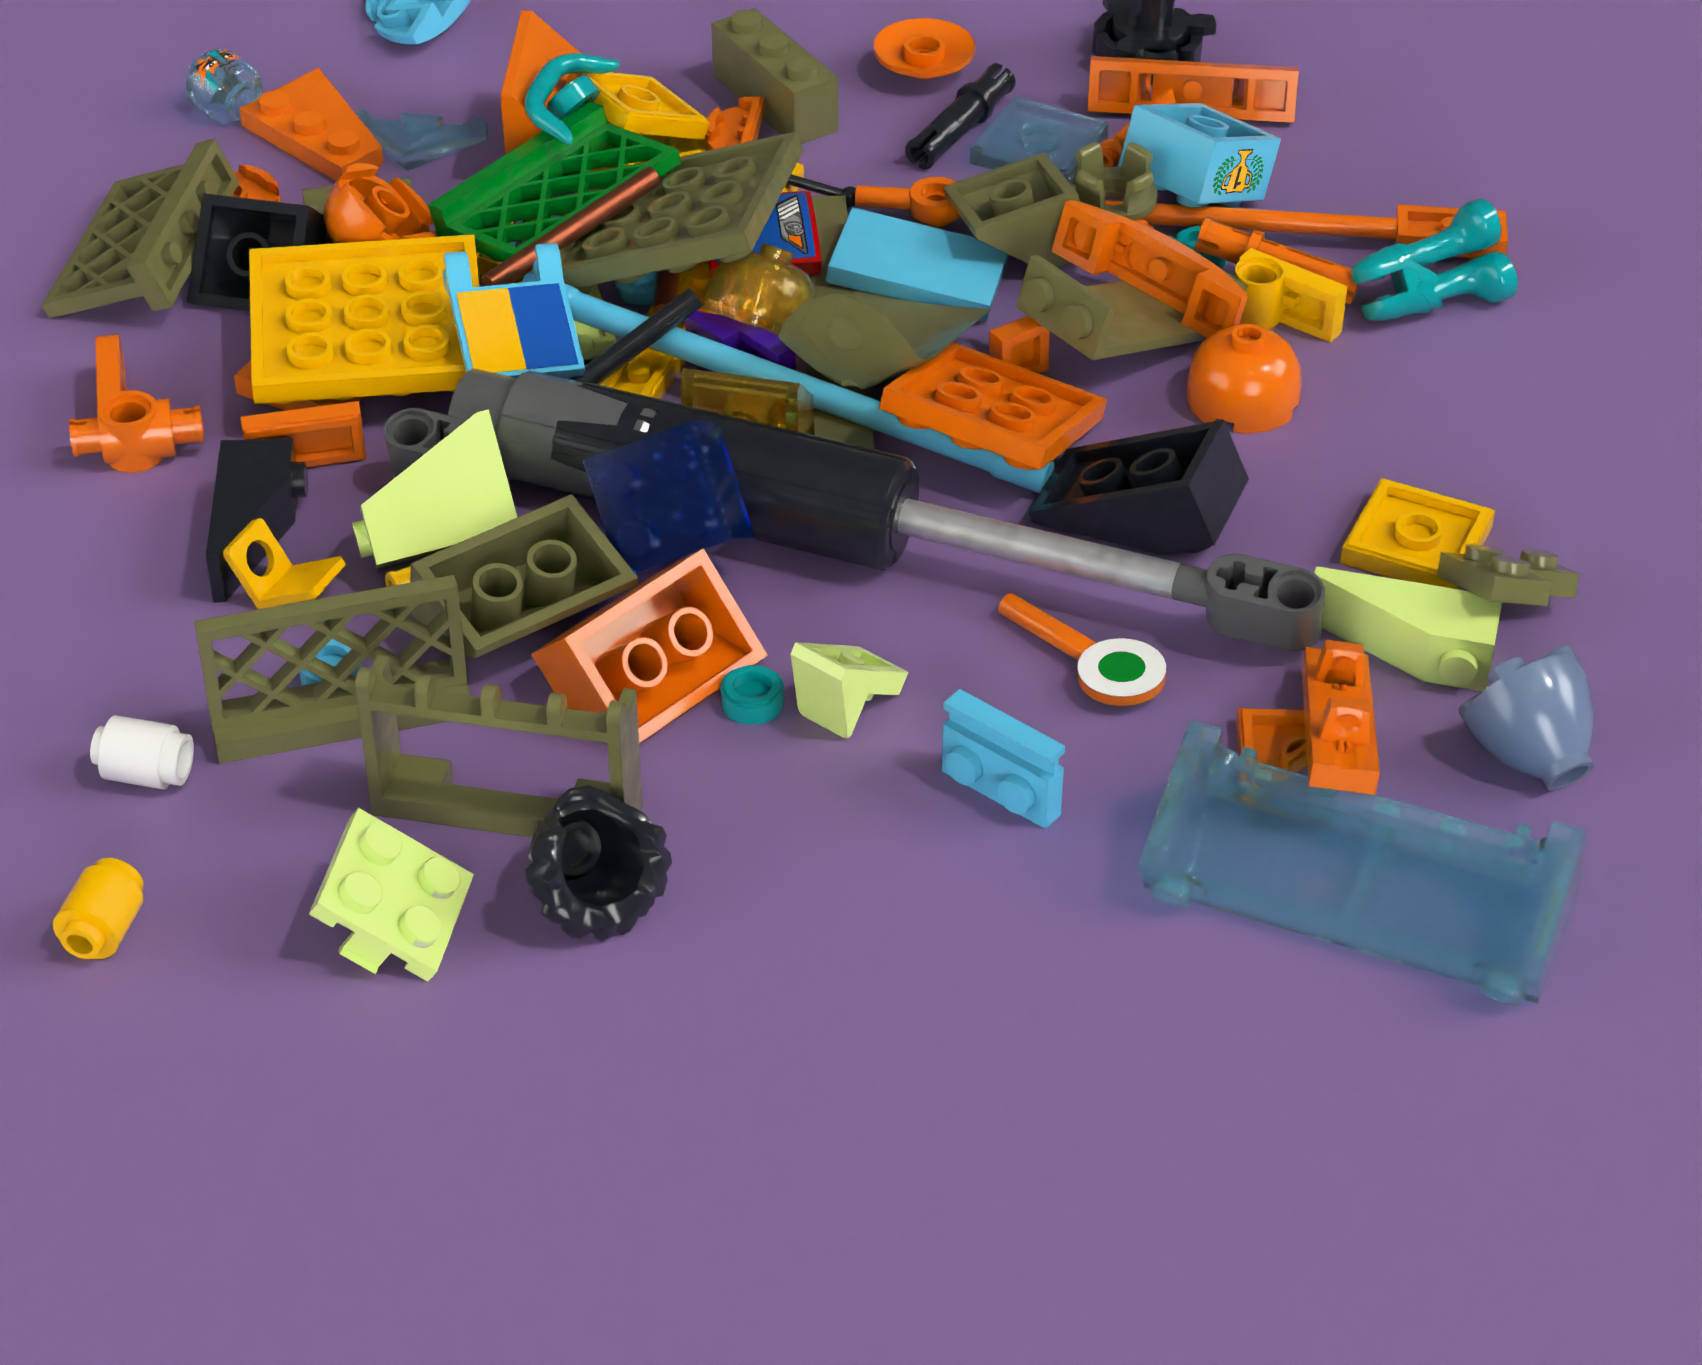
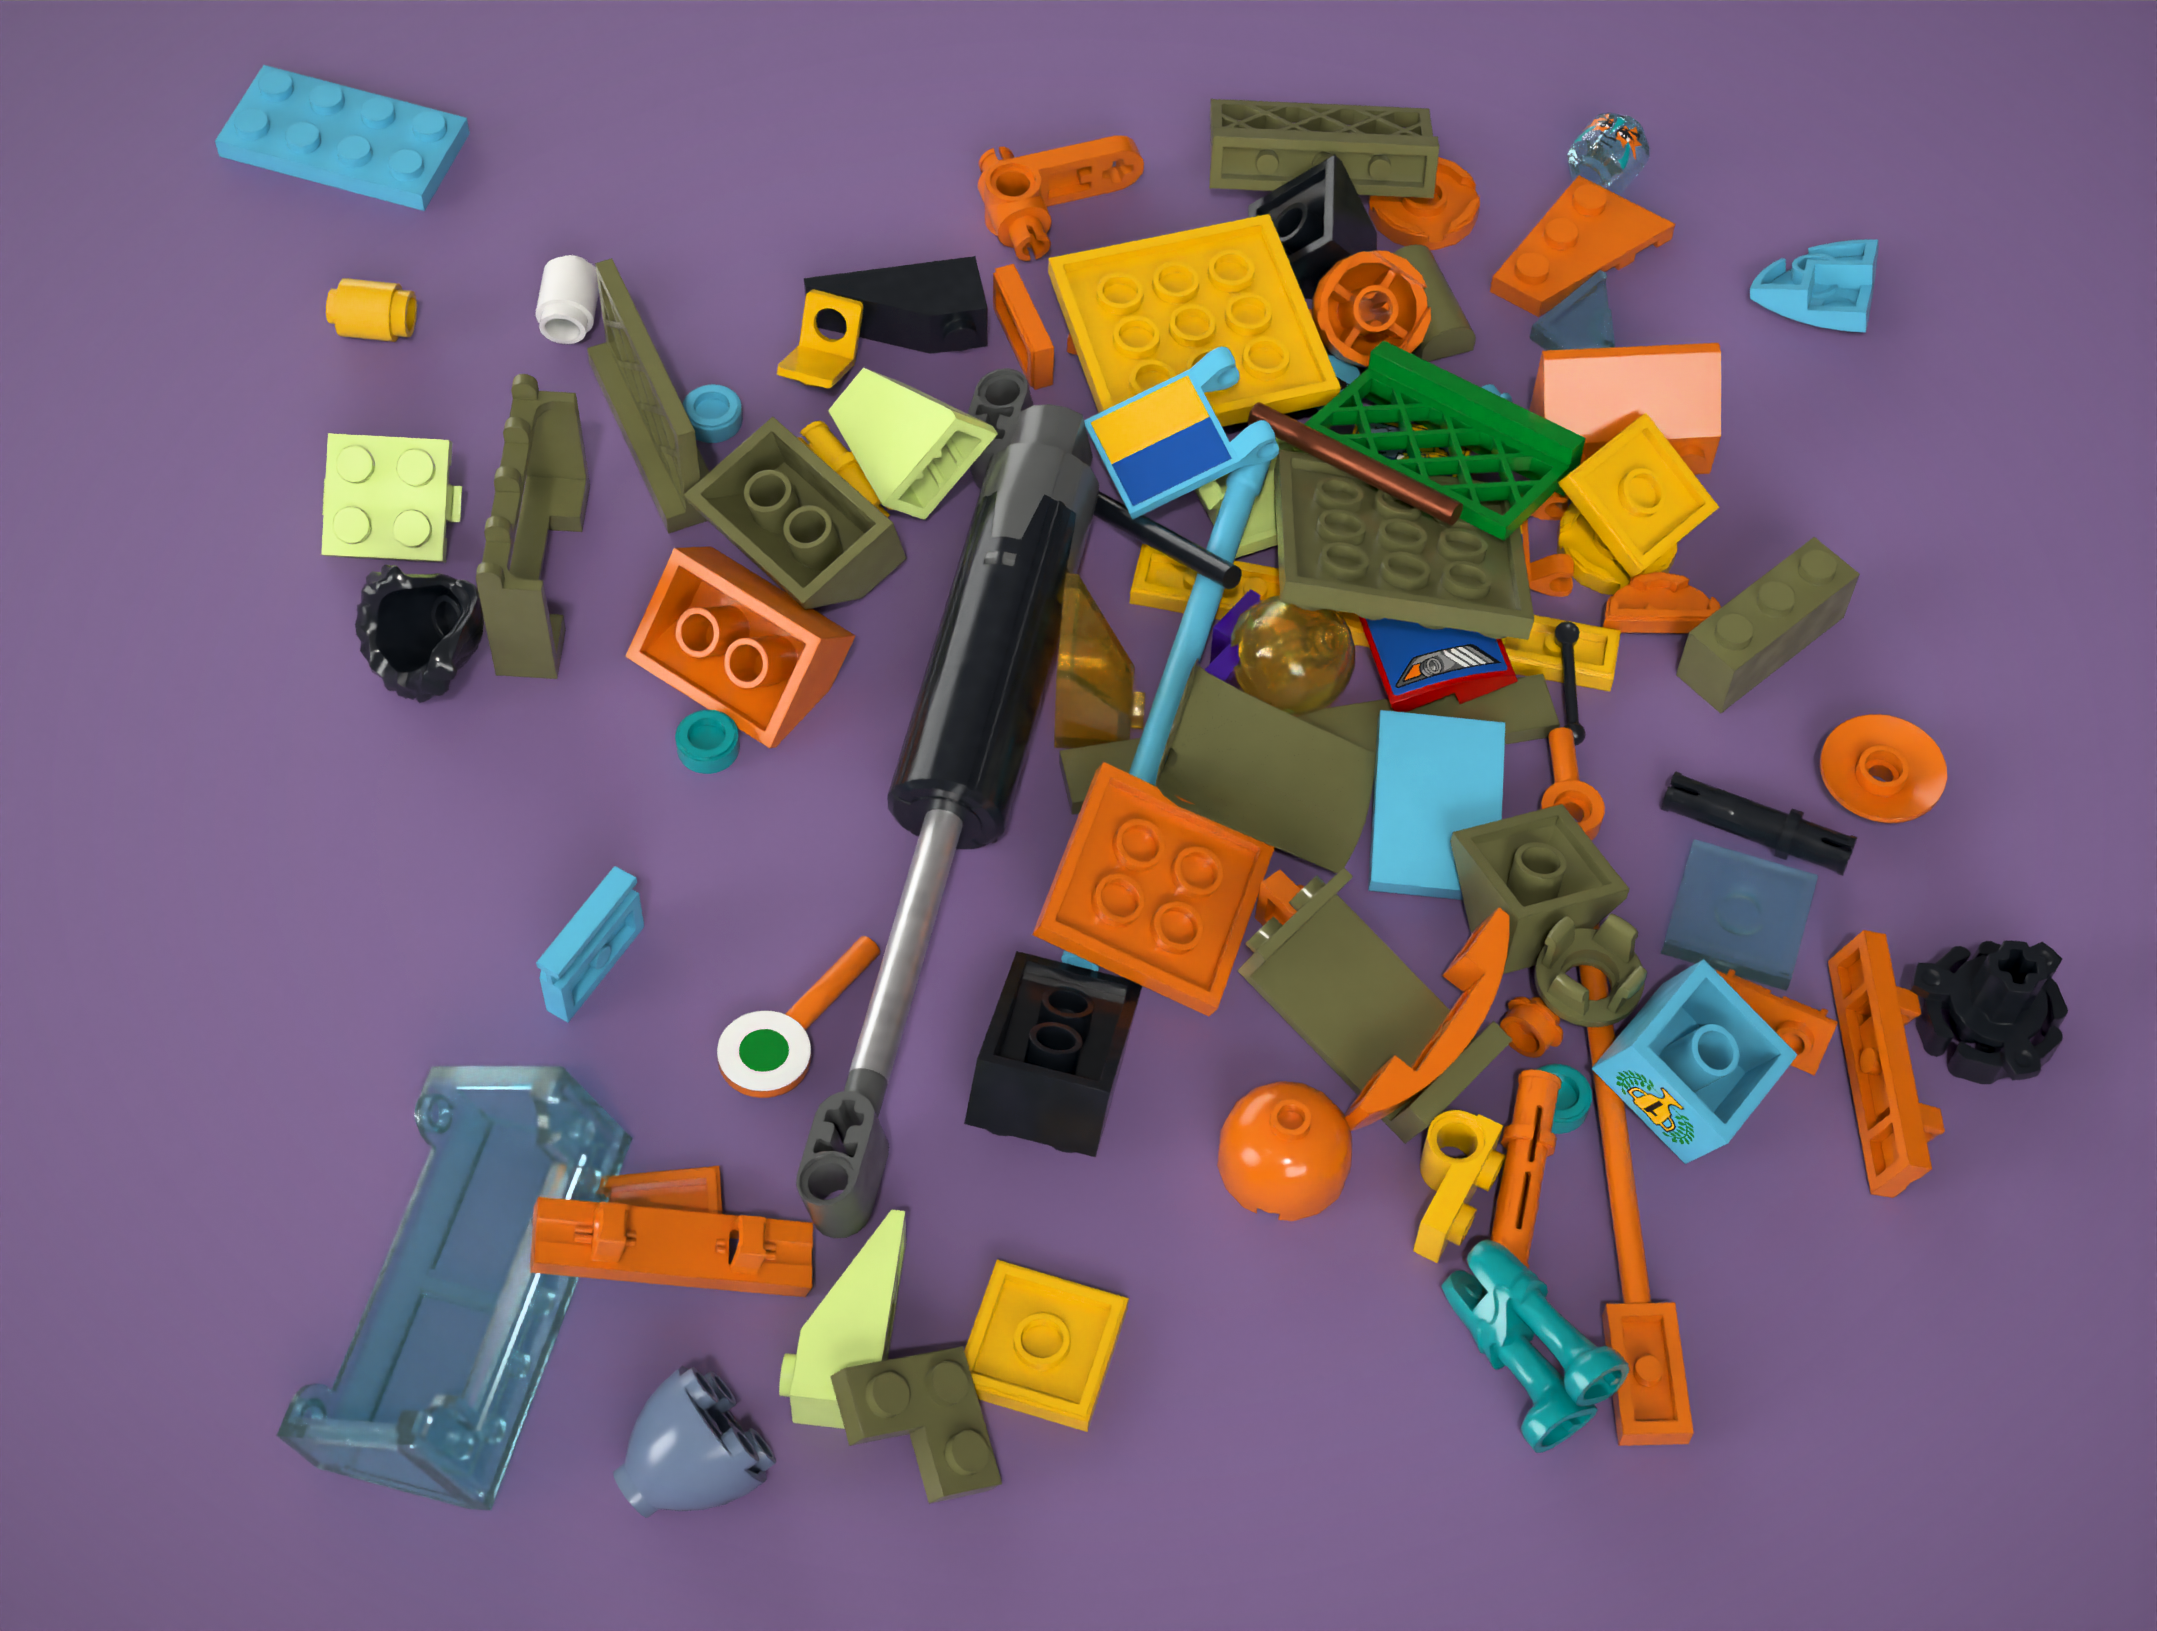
camera: 80 degrees right, 15 degrees up
(546, 81) = (1587, 388): teal animal -> none
(573, 97) = (1581, 421): teal tile -> none
(669, 496) = (901, 603): clear blue brick -> none
(838, 680) = (698, 792): yellowish green slope -> none

